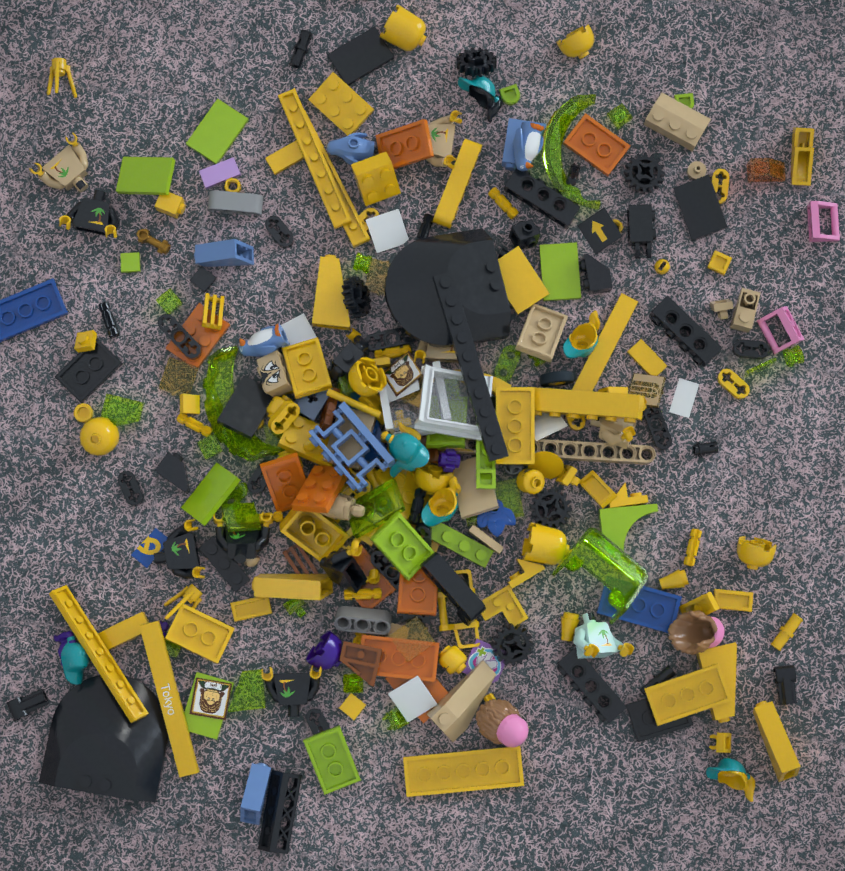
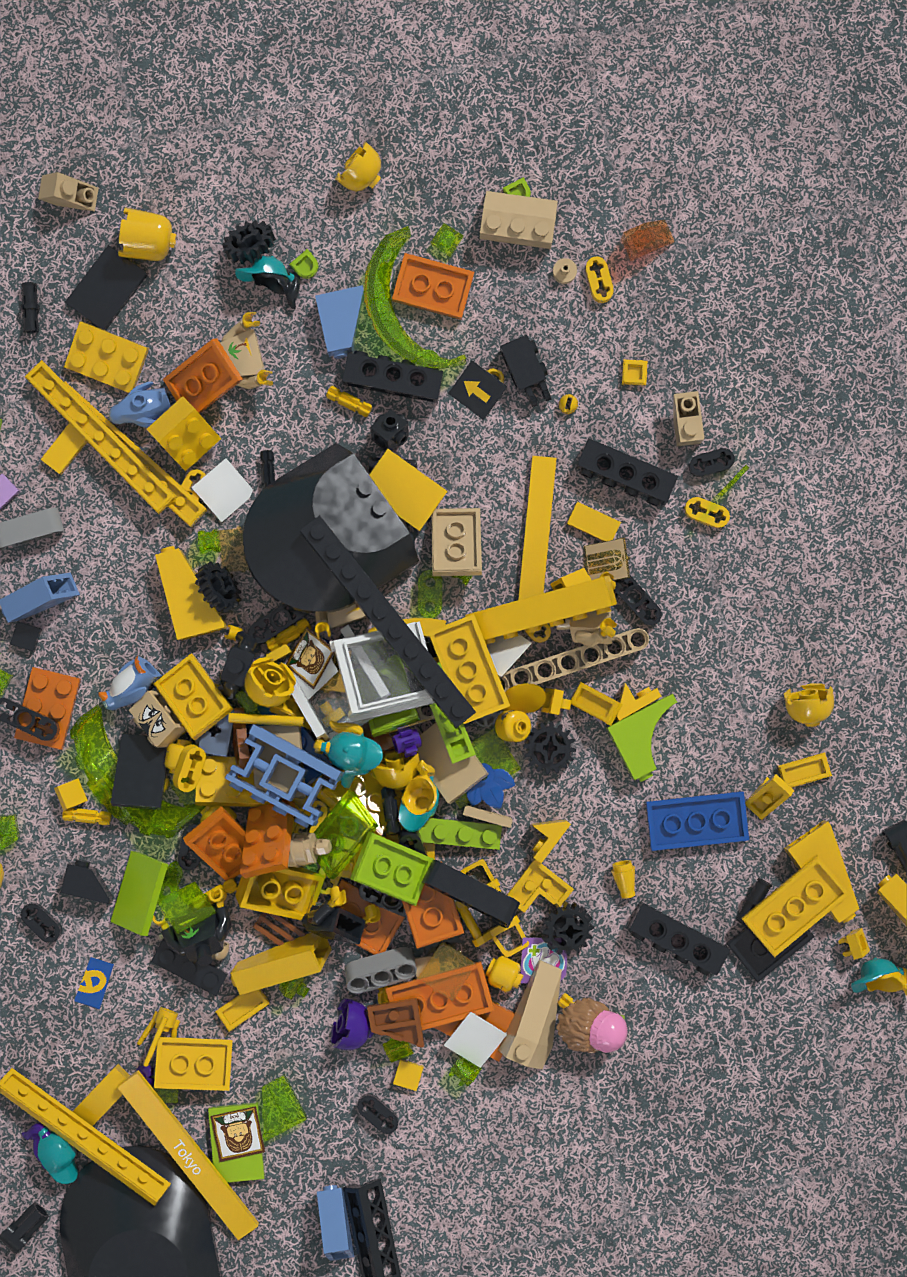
camera: 25 degrees left, 5 degrees up
(178, 377) = (44, 767): clear yellow piece -> none
(181, 552) = (133, 976): black torso -> none
(209, 446) = (115, 835): clear neon green plate -> none
(214, 300) = (49, 656): yellow tile -> none
(232, 180) = (8, 505): yellow axle -> none
(282, 229) = (91, 547): black beam -> none
(292, 688) = (328, 1084): black torso -> none
(298, 330) = (164, 653): white sticker -> none
(331, 759) = (408, 1148): lime tile -> none
(363, 594) = (368, 939): yellow axle -> none
(457, 183) = (284, 399): yellow beam -> none
(463, 771) = (567, 1099): yellow plate -> none
(527, 144) = (350, 321): animal -> none
(544, 545) = (559, 796): yellow cylinder -> none
(556, 378) = (495, 590): black bush -> none
(560, 271) = (449, 457): lime tile -> none
(573, 174) = (419, 334): black axle -> none
(583, 338) = (508, 530): yellow hair -> none
(596, 641) = (665, 883): light aqua torso -> none
(597, 275) = (495, 445): black slope -> none
(609, 566) = (645, 791): clear neon green windscreen -> none
(649, 178) = (511, 303): black gear -> none
(674, 580) = (728, 774): yellow cone -> none
(684, 398) = (655, 552): white sticker -> none
(692, 547) = (733, 727): yellow axle -> none
(695, 632) = (777, 829): medium nougat hair -> none
(700, 207) = (586, 314): black tile -> none
(705, 448) = (703, 603): black pin -> none
(721, 307) = (657, 426): tan tile -> none
(786, 632) = (881, 783): yellow pin -> none
(789, 325) = (746, 416): bright pink tile -> none
(793, 356) = (765, 451): clear neon green wheel -> none
(802, 156) = (683, 203): yellow slope -> none
(814, 224) = (728, 278): bright pink tile -> none

